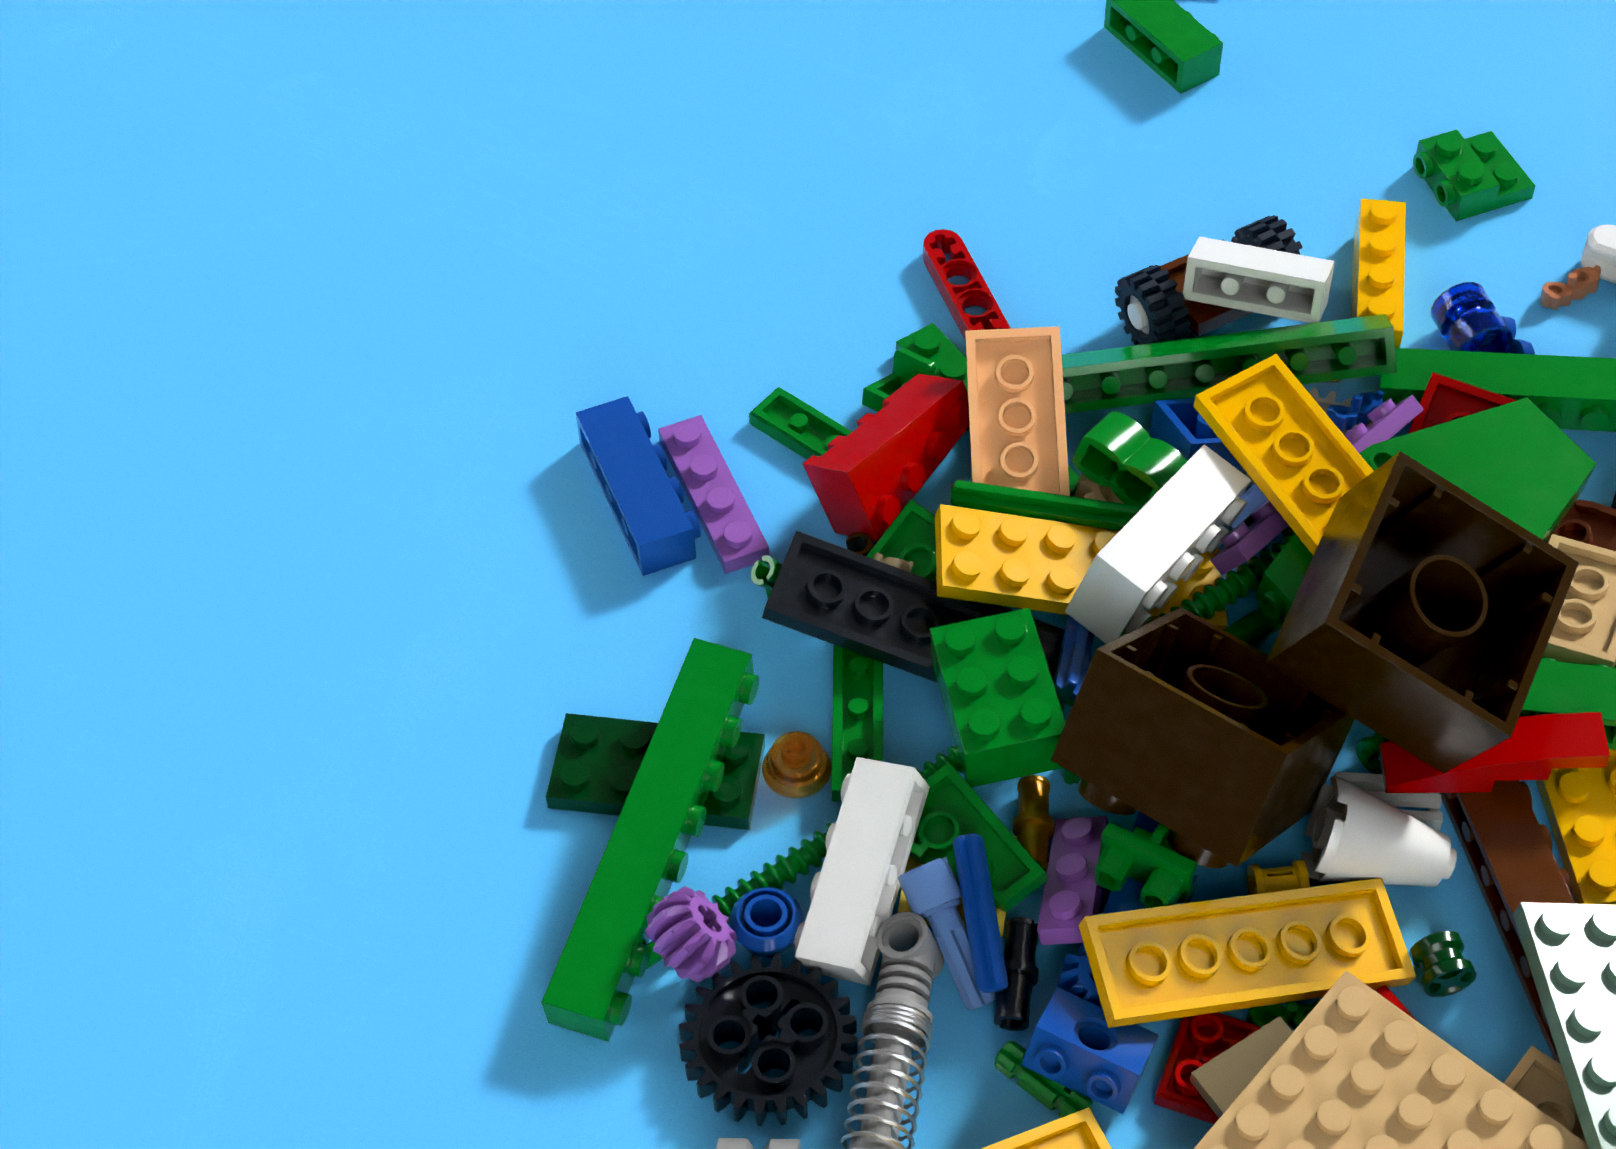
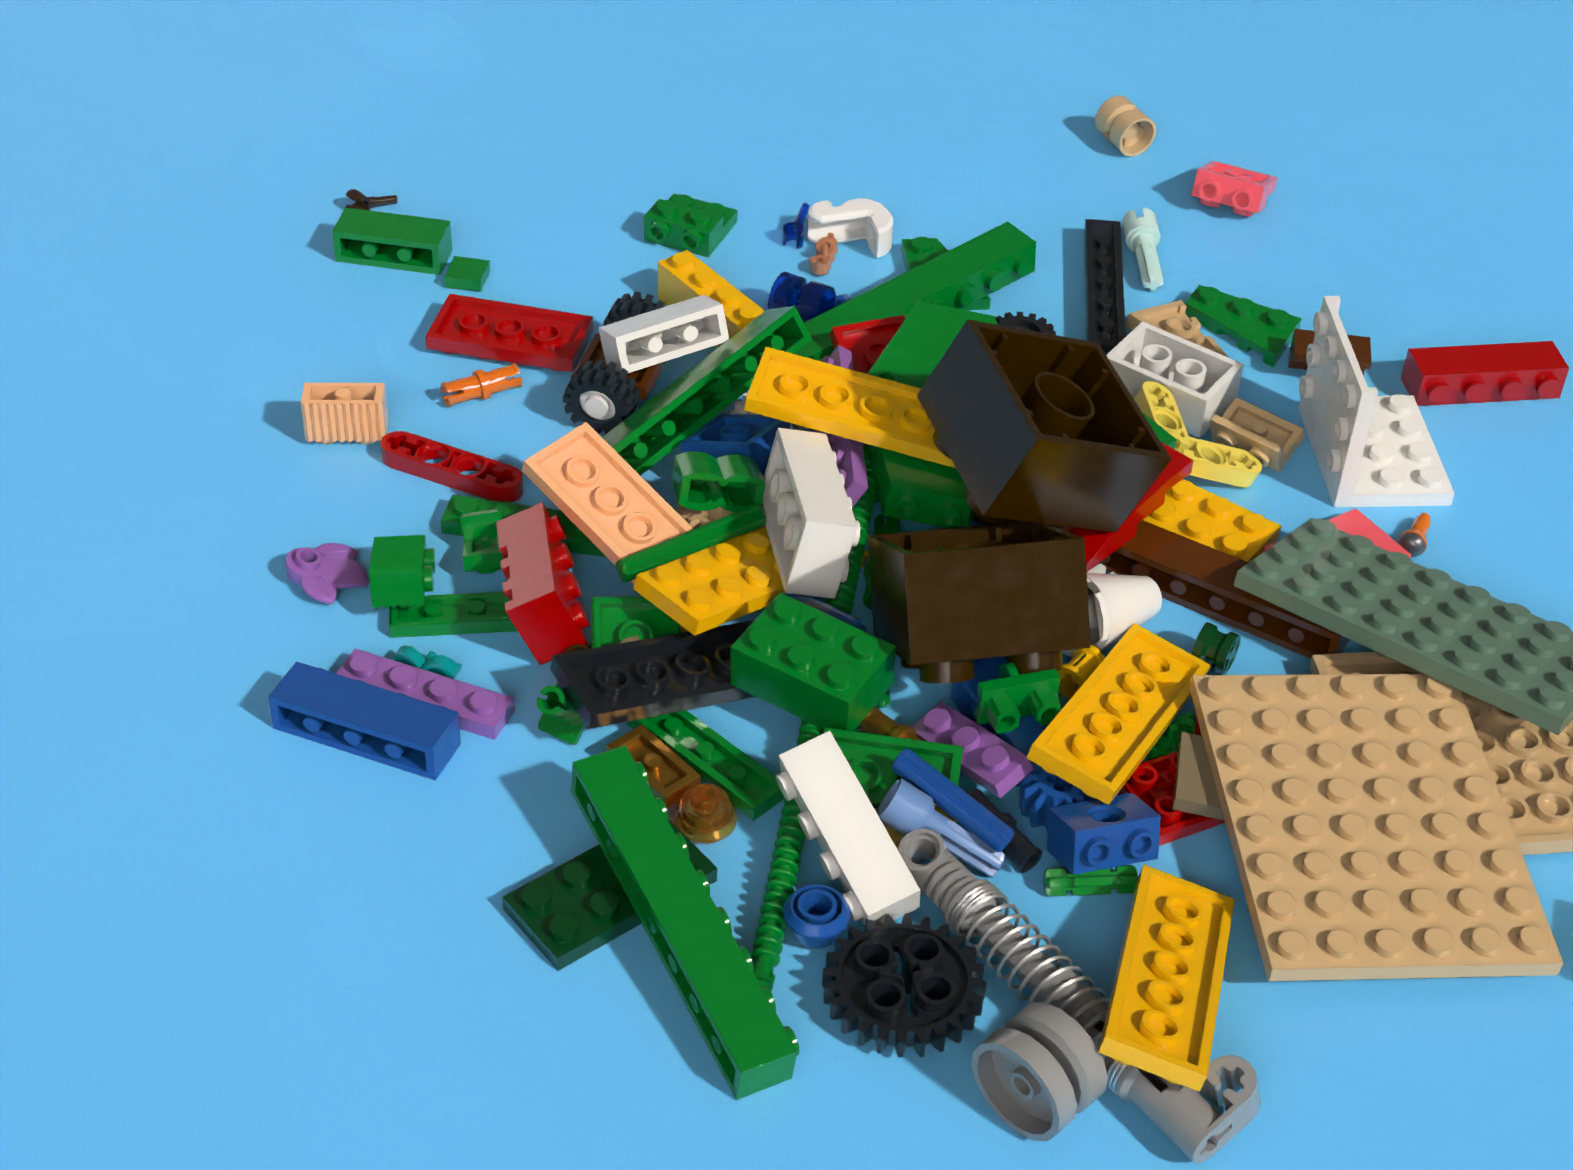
camera: 50 degrees left, 10 degrees down
(691, 934) = (793, 949): medium lavender gear -> none
(743, 473) = (434, 663): none -> teal piece
(765, 331) = (325, 570): none -> medium lavender plate
(799, 367) = (401, 571): none -> green brick
(804, 689) = (665, 770): none -> pearl gold plate
(924, 185) = (344, 412): none -> light nougat brick
(1080, 229) = (481, 384): none -> orange pin
(1161, 189) = (510, 332): none -> red plate
(1199, 107) = (467, 273): none -> green tile
(1568, 241) = (795, 229): none -> clear blue hand

